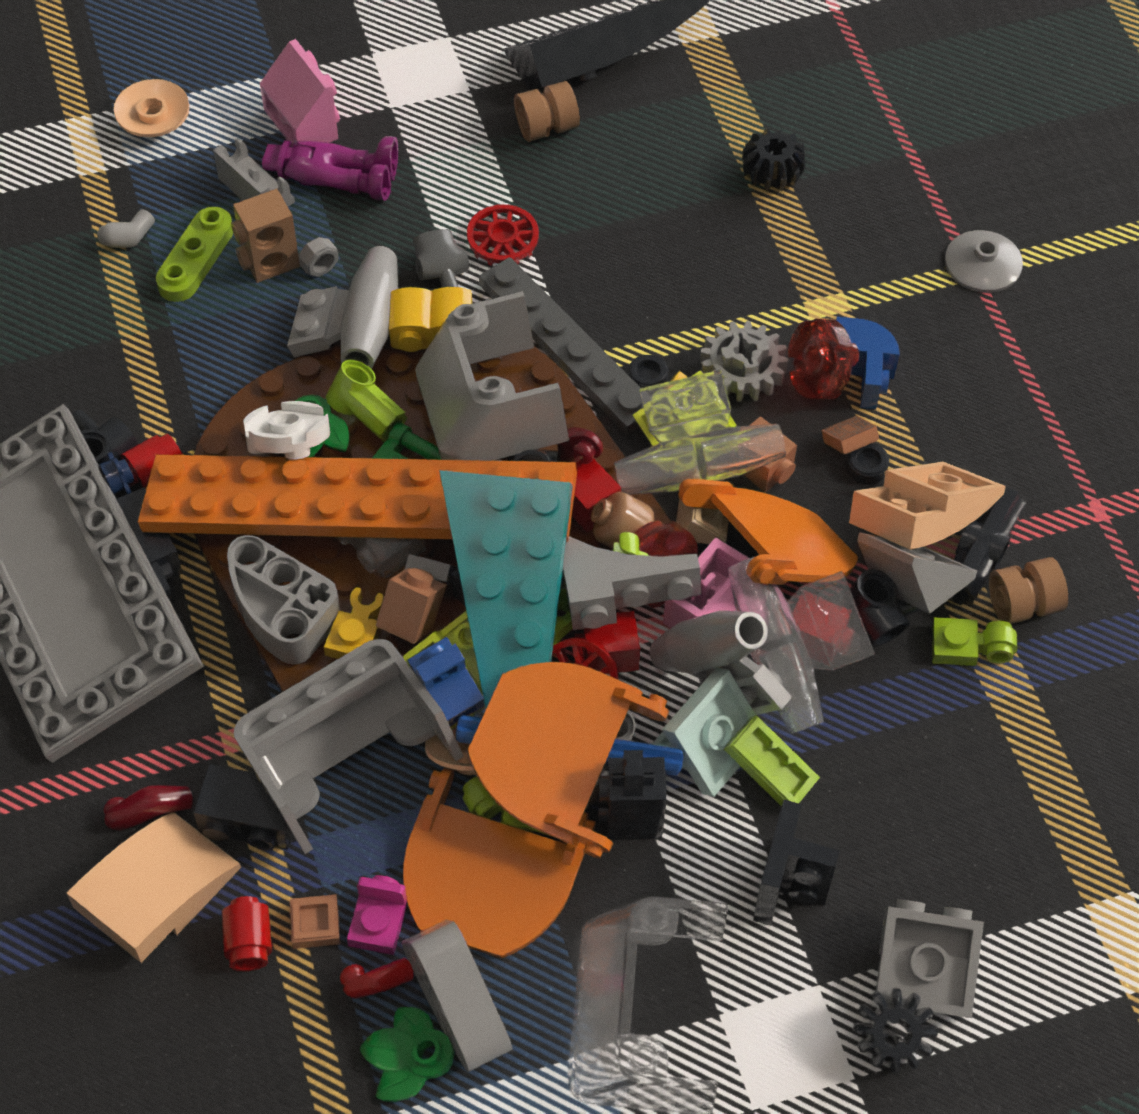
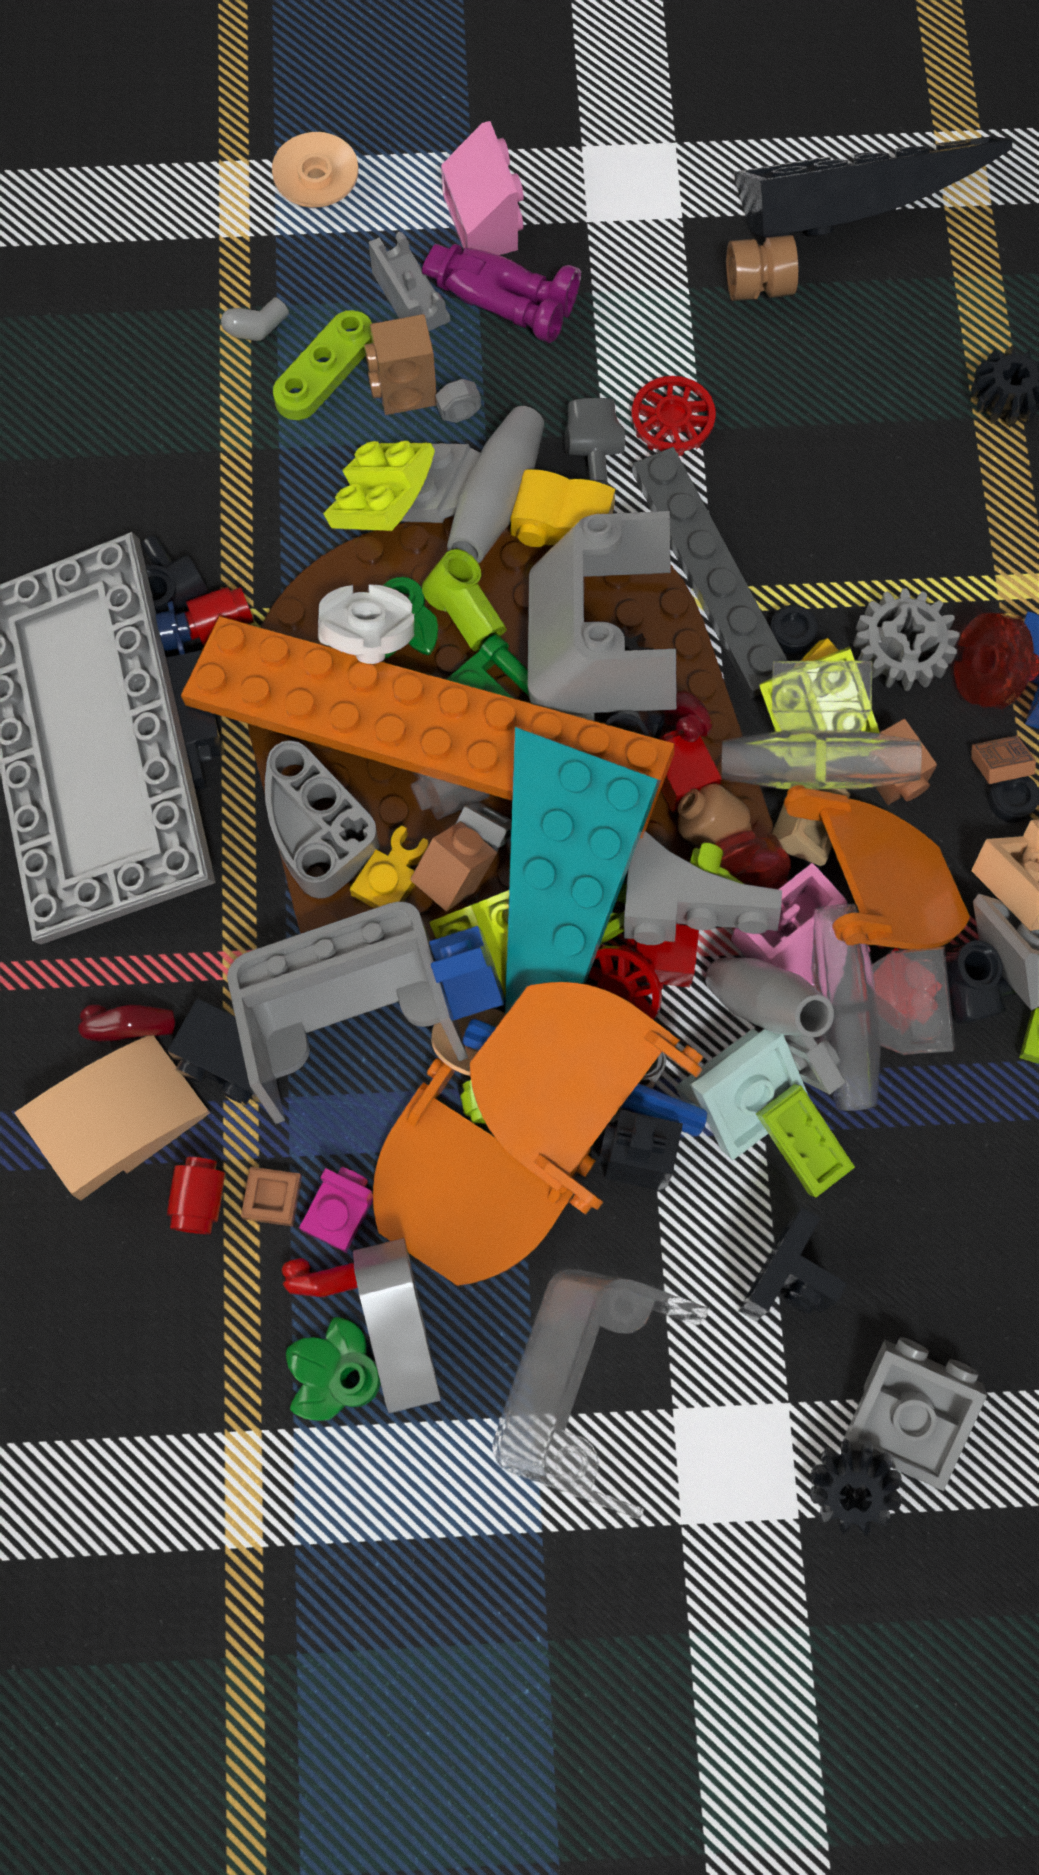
camera: 15 degrees right, 15 degrees up
(269, 330) = (382, 485): none -> neon yellow slope

